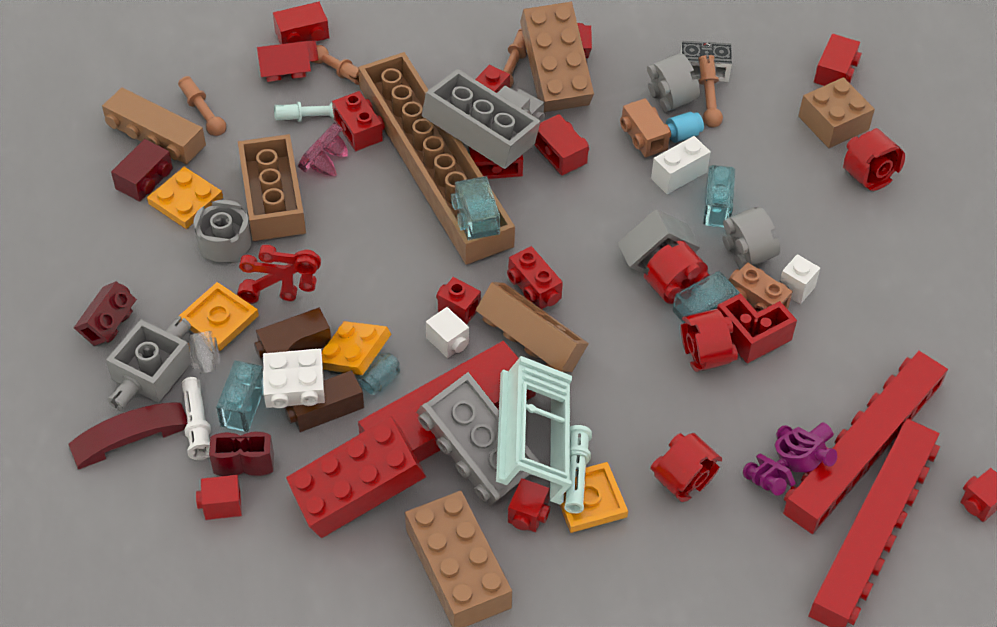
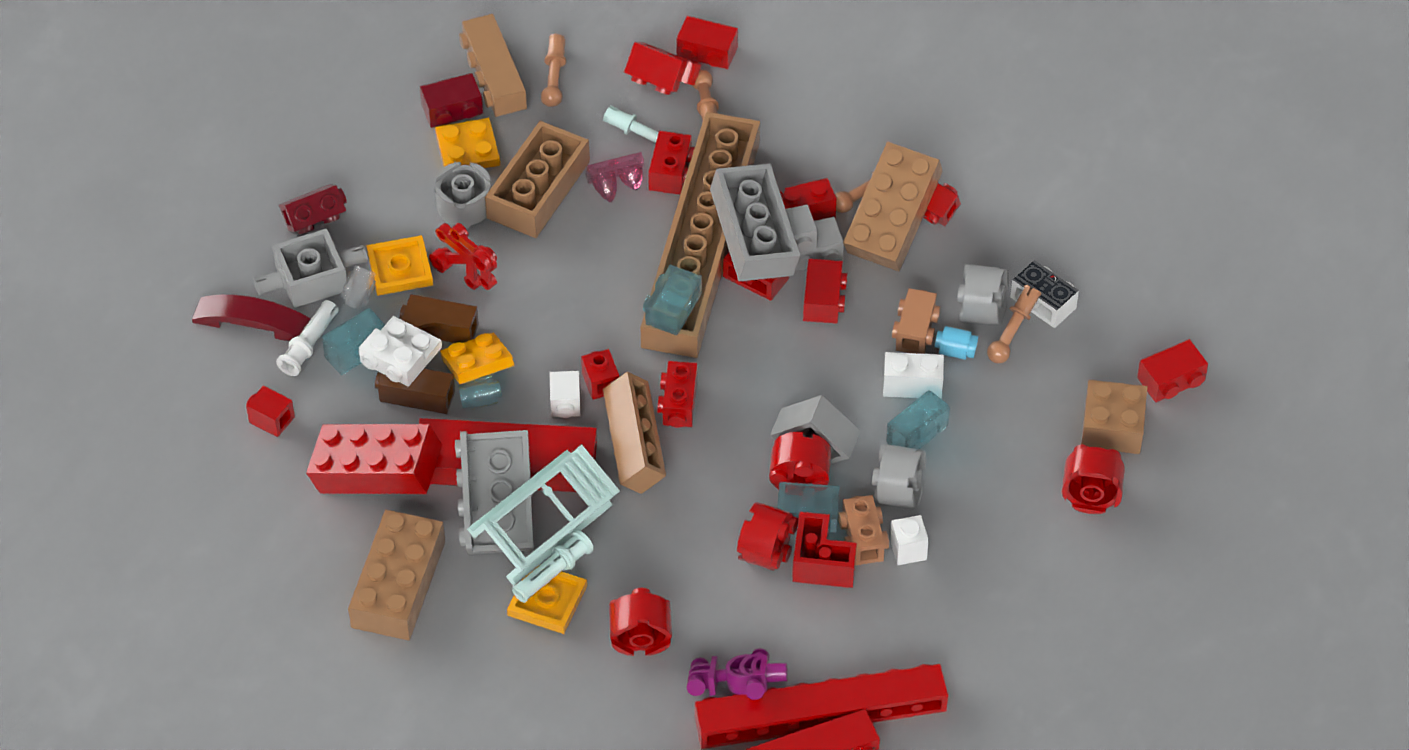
camera: 40 degrees right, 0 degrees up
(241, 454) = (312, 386): dark red brick -> none
(529, 506) = (489, 572): red brick -> none

